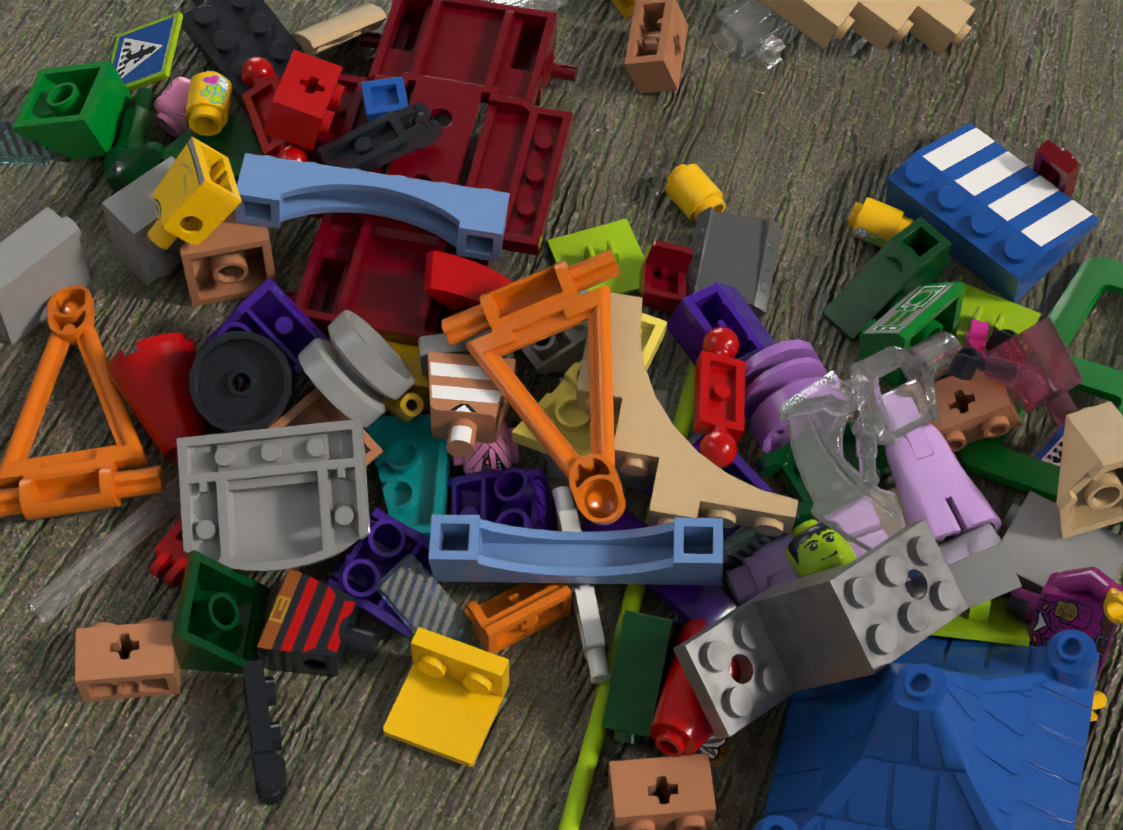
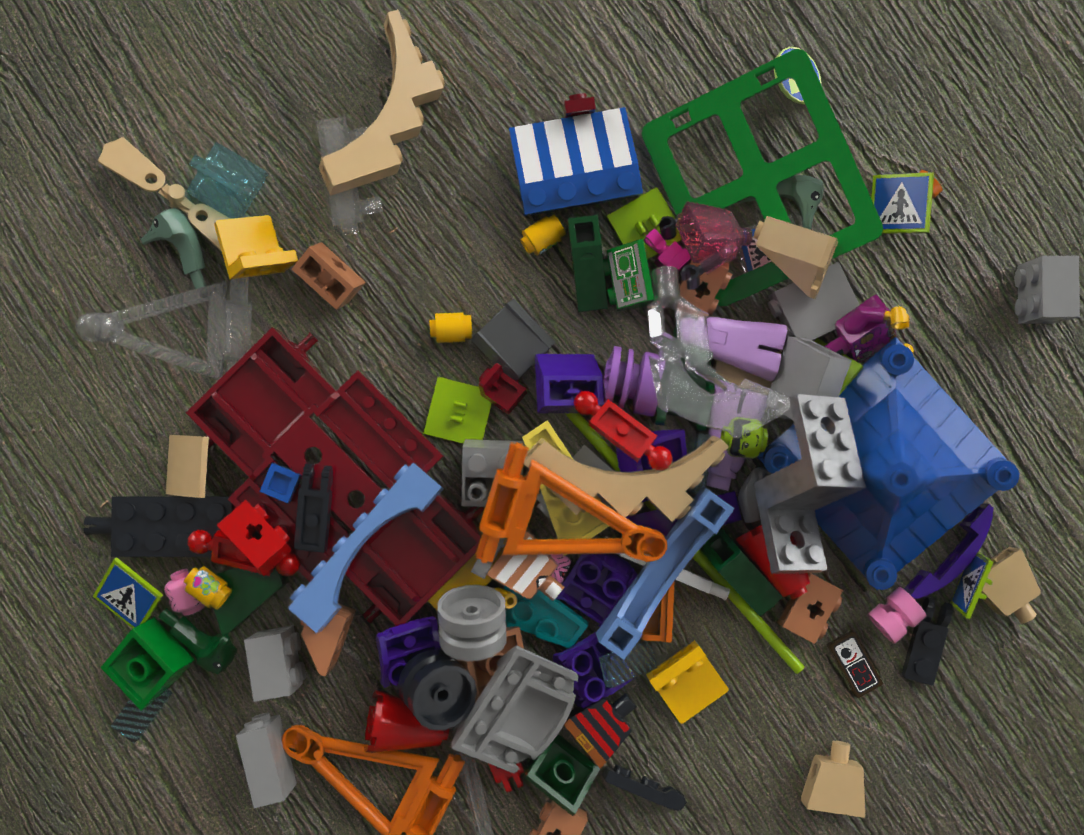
camera: 55 degrees left, 30 degrees up
(193, 196) = (296, 652): yellow torso -> none
(459, 280) = (451, 520): red slope -> none

